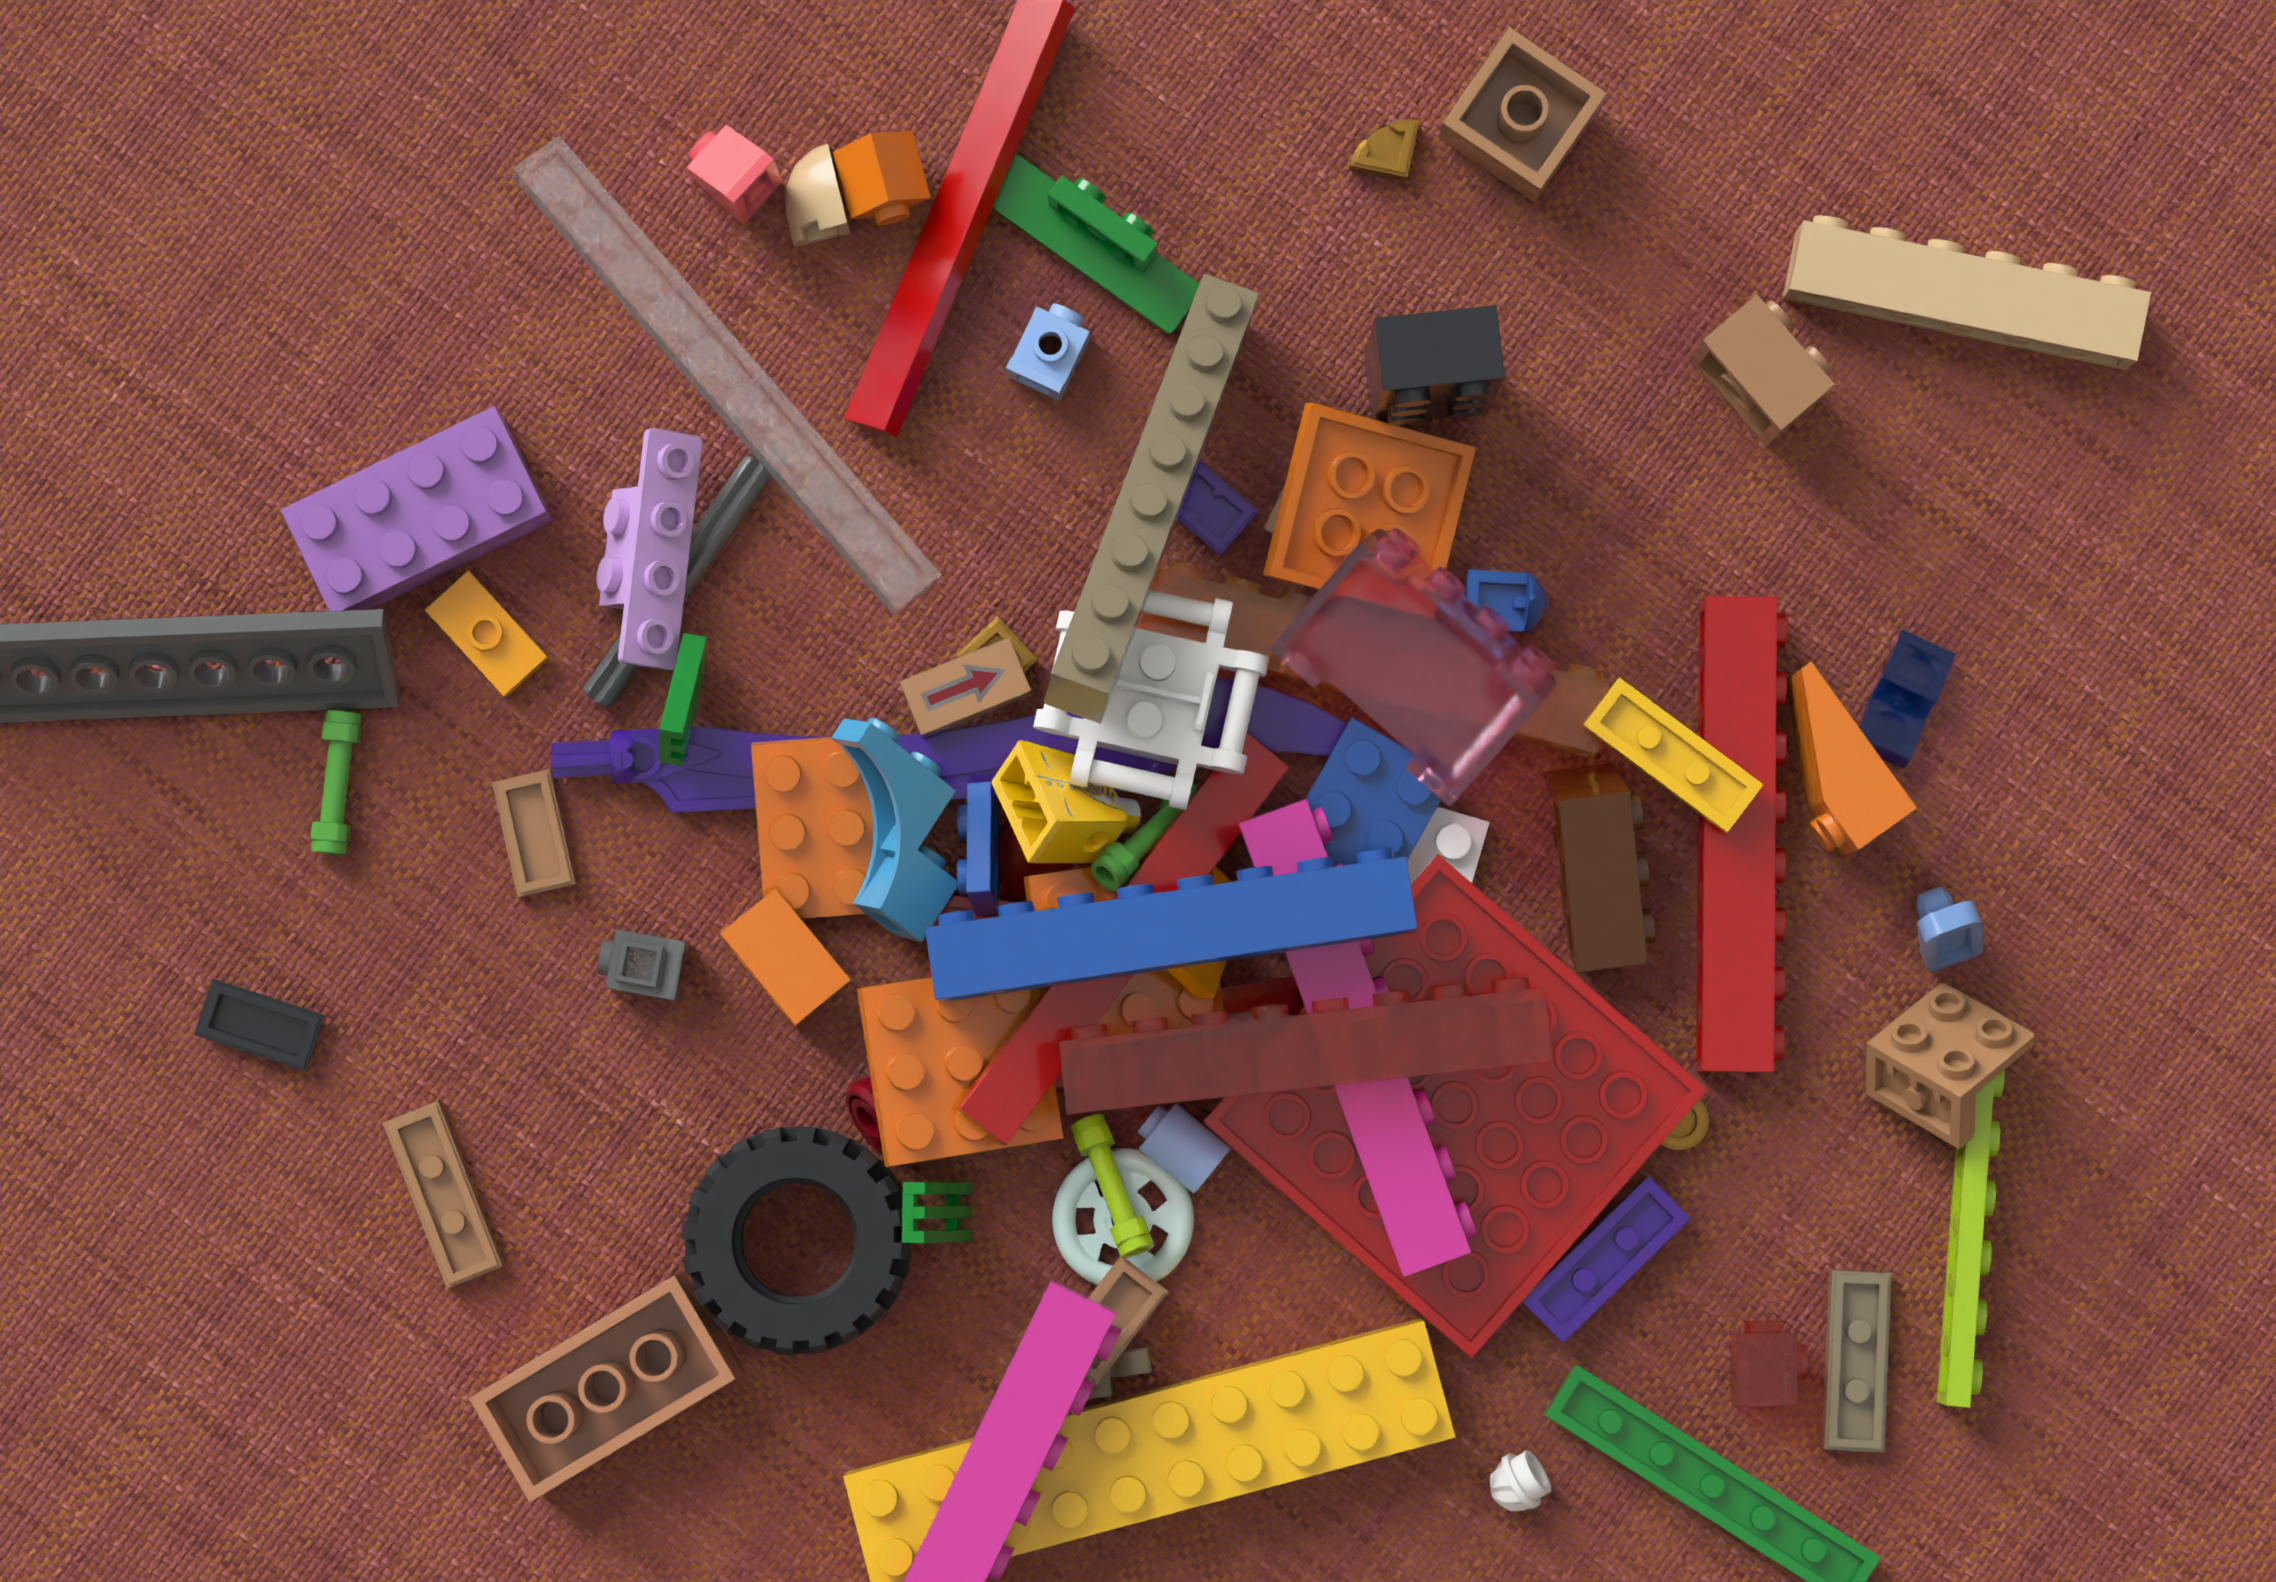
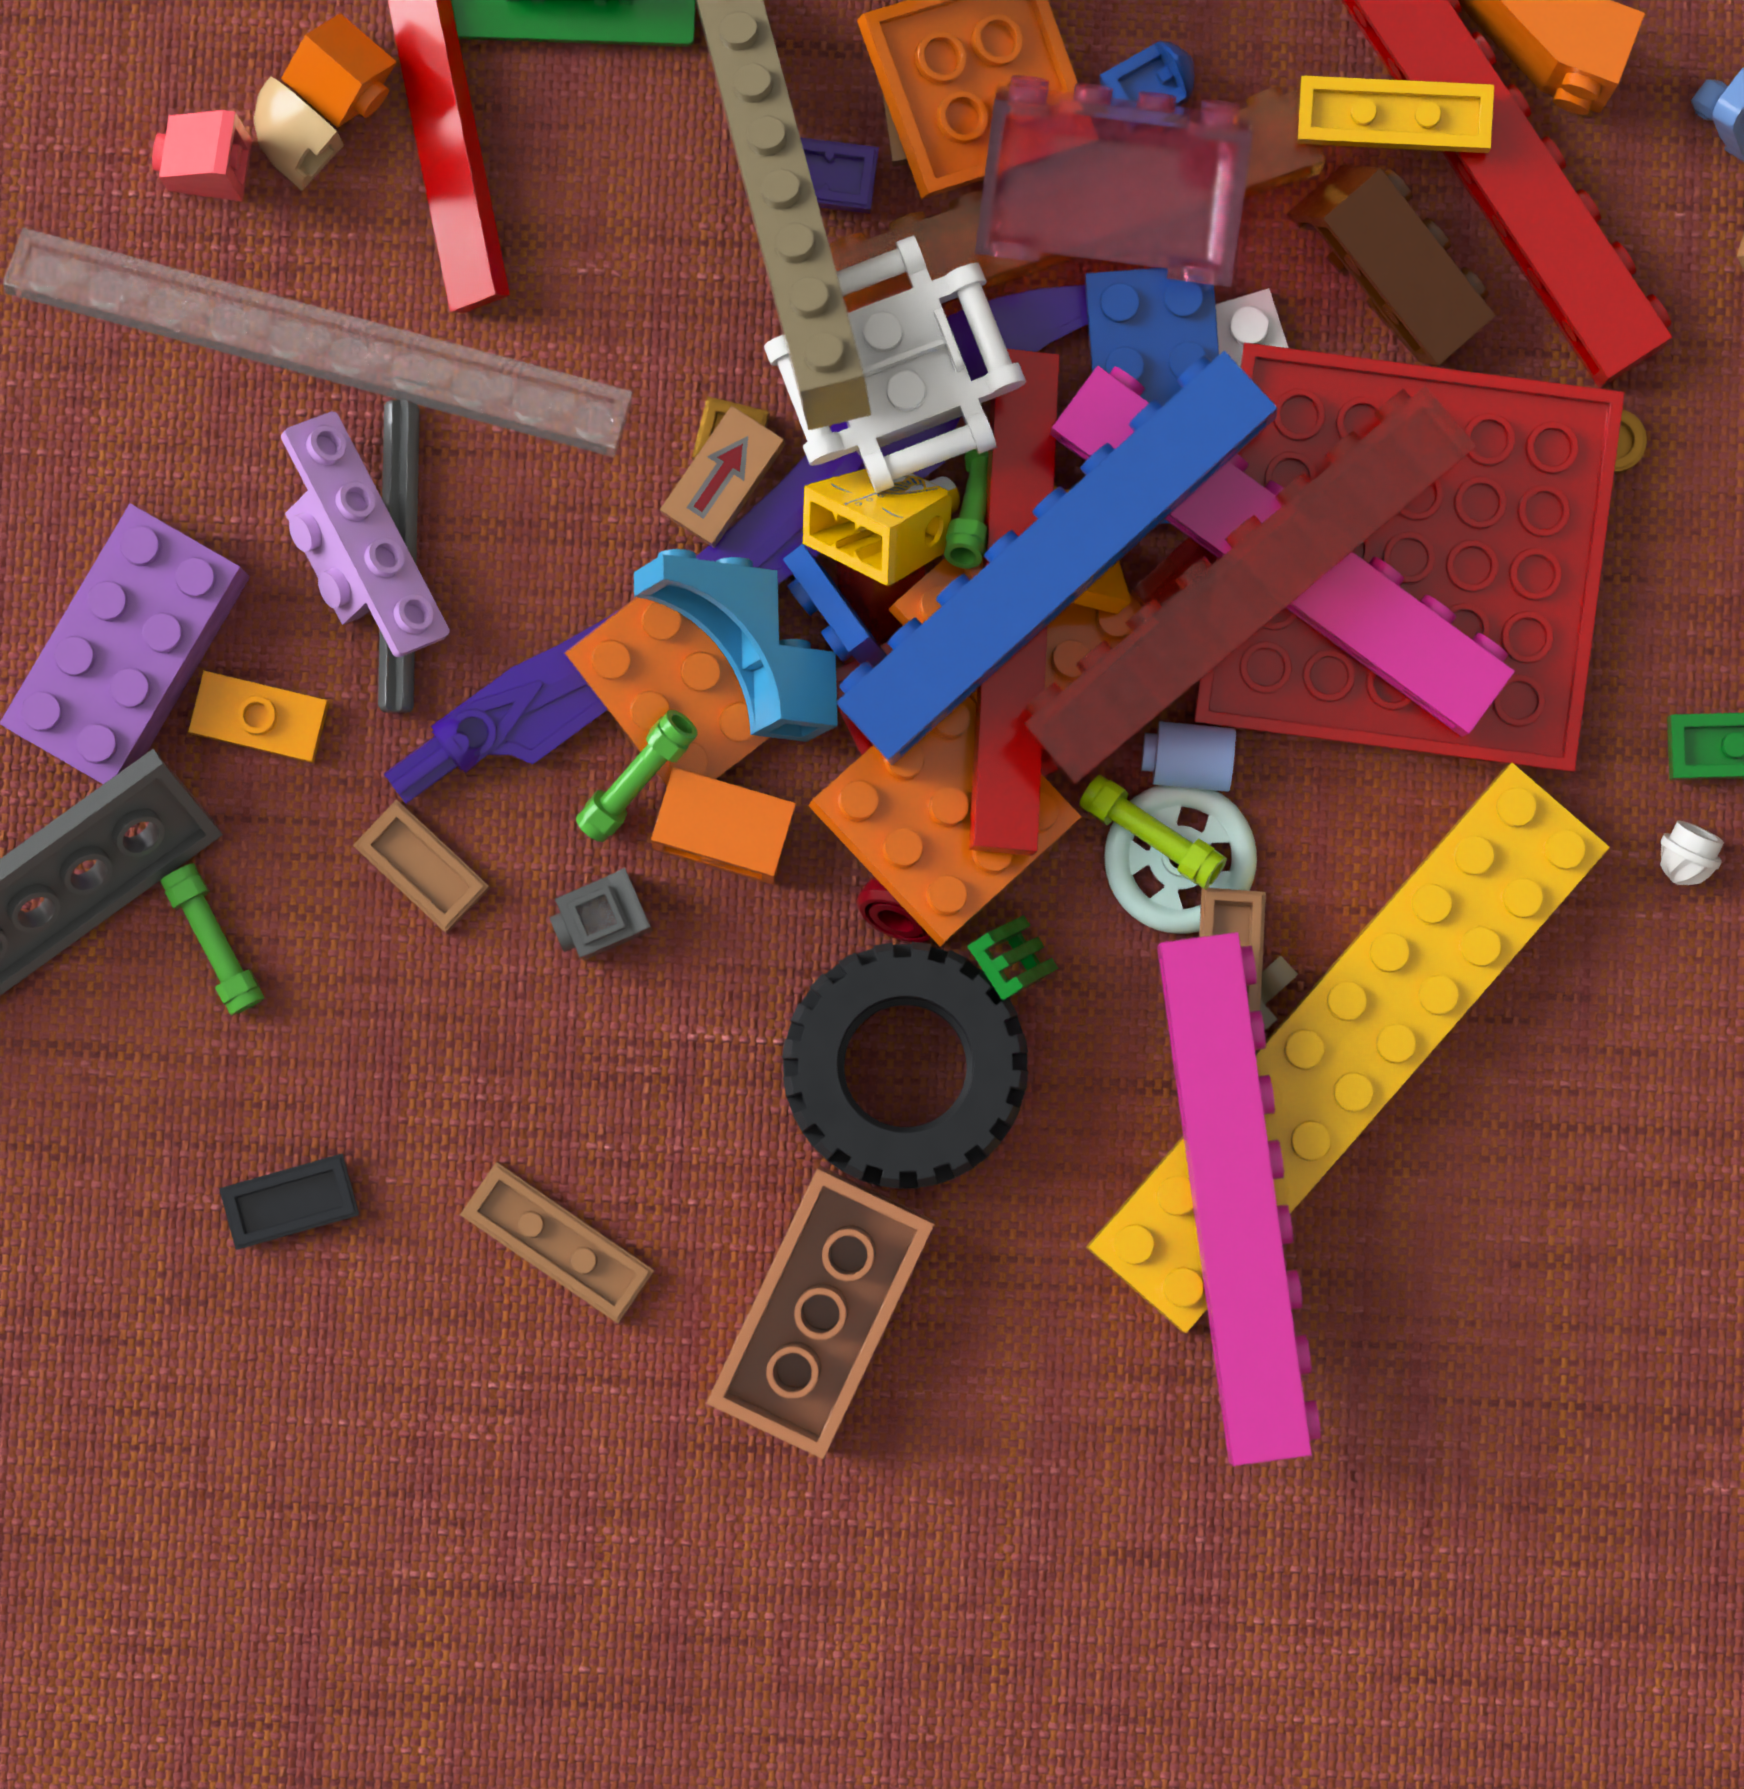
camera: 30 degrees left, 0 degrees up
(682, 699) = (476, 654): green tile -> none
(781, 866) = (666, 741): none -> bright green bar
(1049, 372) = (601, 150): light blue brick -> none
(1605, 1258) = (1633, 604): dark purple plate -> none

